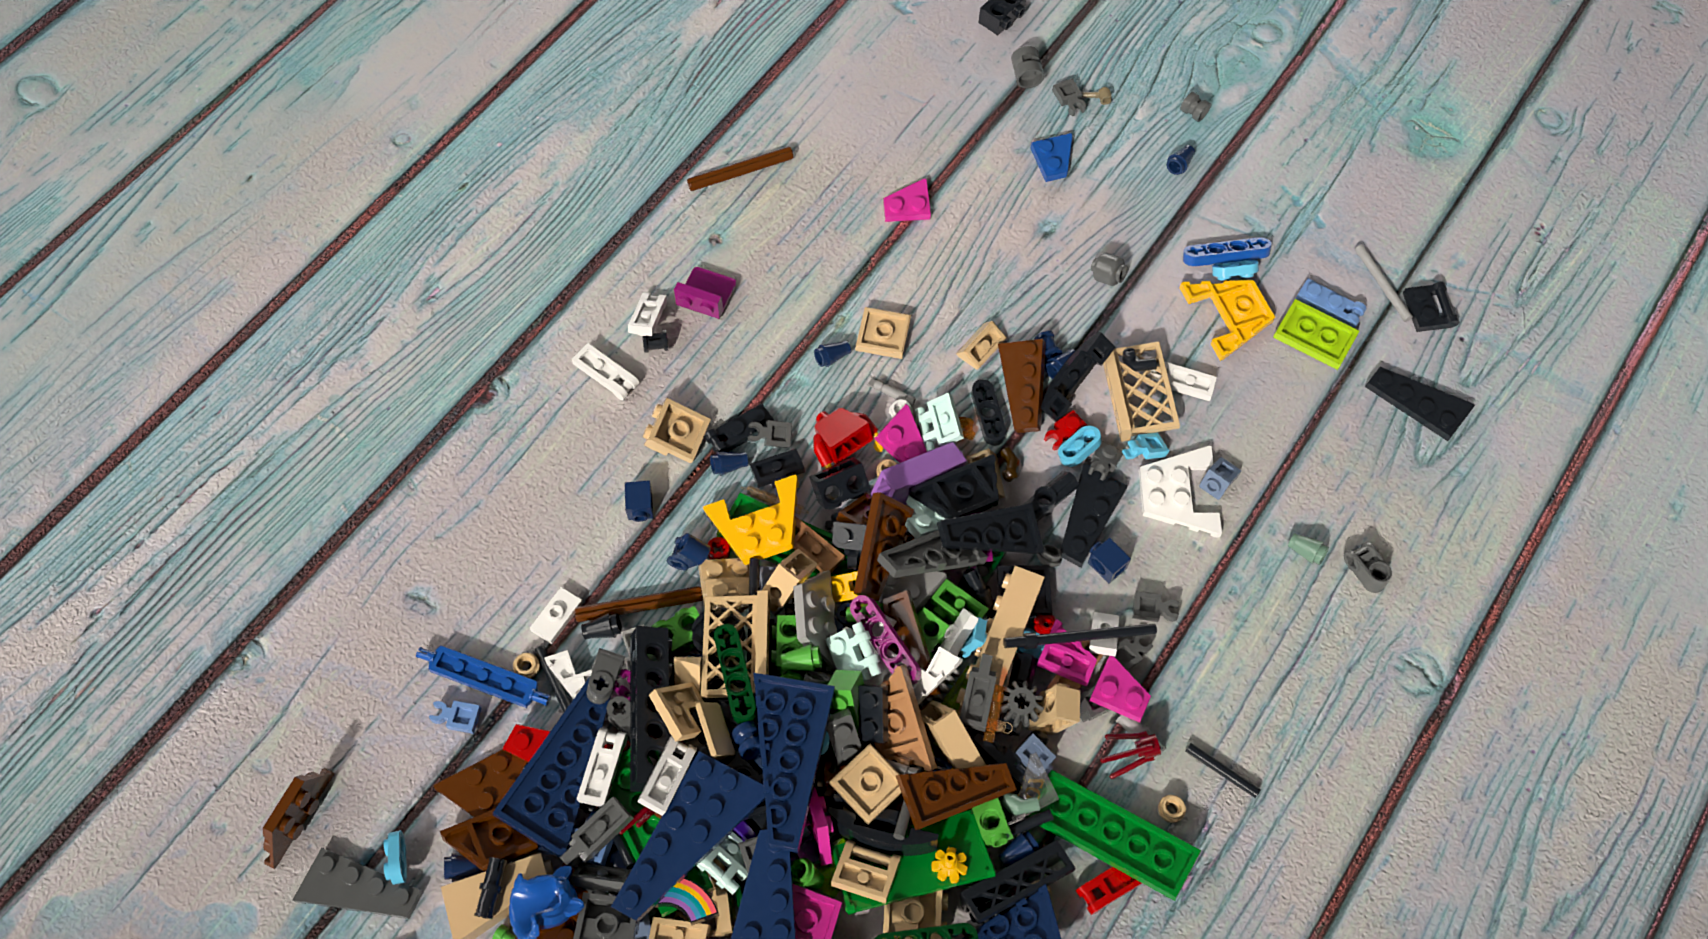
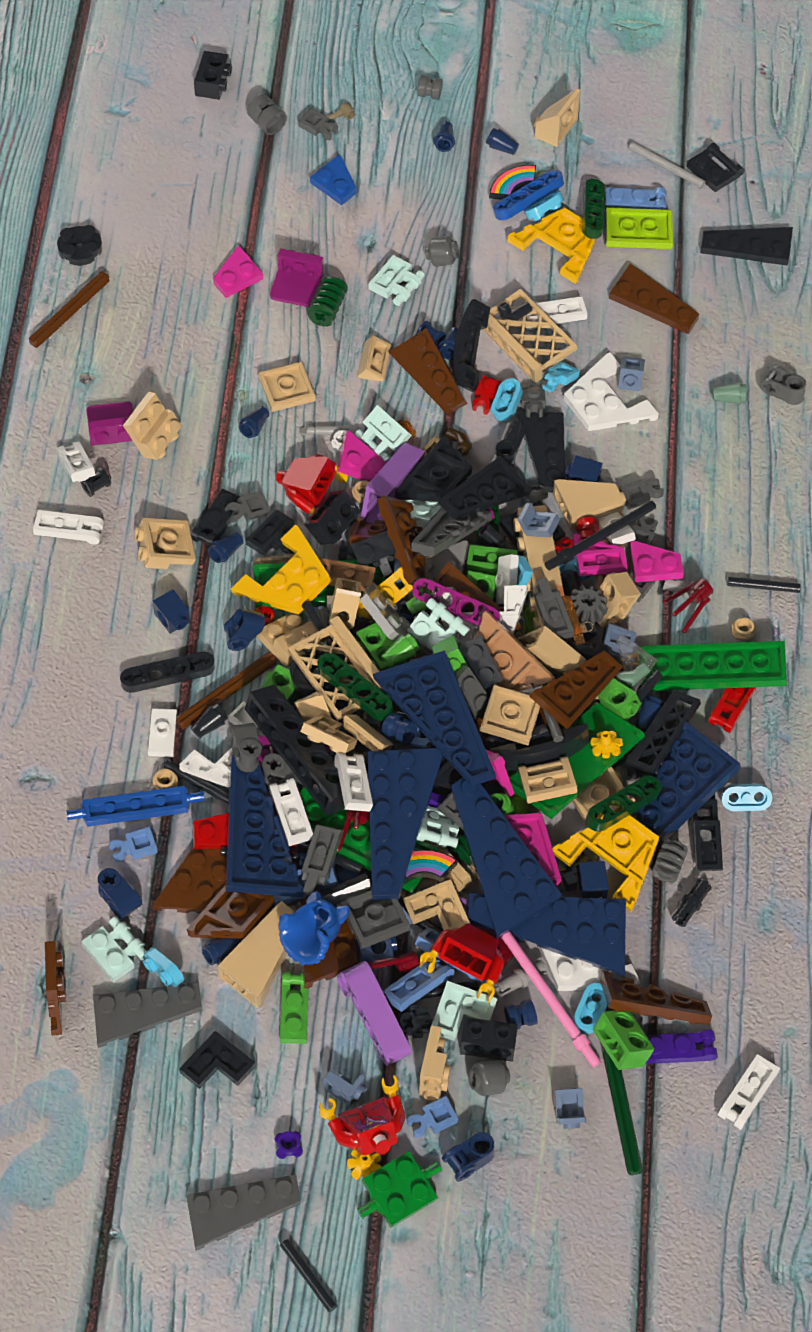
camera: 30 degrees left, 5 degrees down
(365, 810) = (108, 953): none -> light aqua plate
(409, 761) = (118, 893): none -> dark blue piece
(490, 888) = (262, 941): black pin -> none
(597, 562) = (168, 675): none -> black beam
(733, 313) = (152, 427): none -> tan plate
(788, 103) = (76, 235): none -> black plate
(957, 234) = (297, 277): none -> magenta bracket
(969, 267) = (327, 301): none -> dark green piece
(990, 402) = (413, 400): black beam -> none
(1021, 592) = (537, 523): none -> sand blue bracket
(1047, 271) = (389, 279): none -> light aqua plate
(1076, 619) = (587, 526): none -> red wheel
(1095, 590) = (587, 499): none -> tan slope
(1220, 230) = (512, 181): none -> tile
(1232, 188) = (501, 141): none -> dark blue cone
(1281, 294) = (593, 208): none -> dark green beam
(1285, 410) = (651, 299): none -> reddish brown wing
(1300, 190) = (558, 119): none -> tan slope

